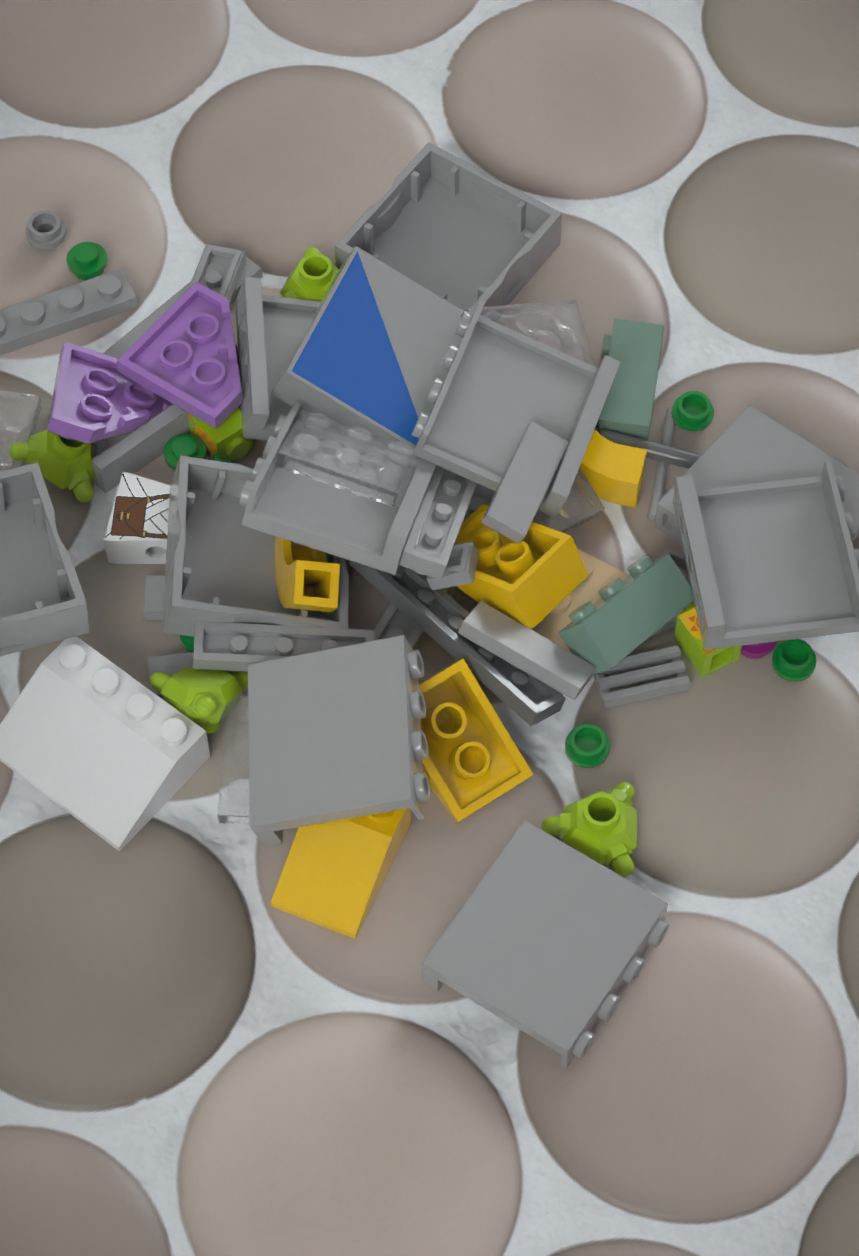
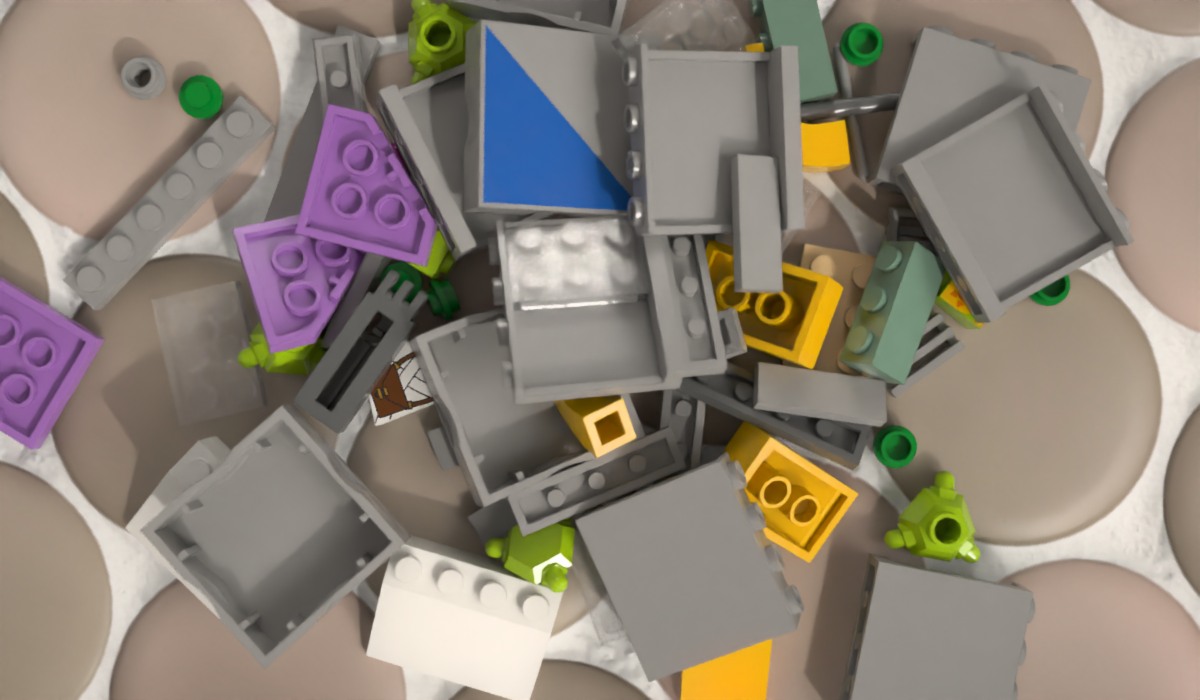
camera: 30 degrees left, 30 degrees up
(108, 483) = (354, 365): none -> dark grey hinge

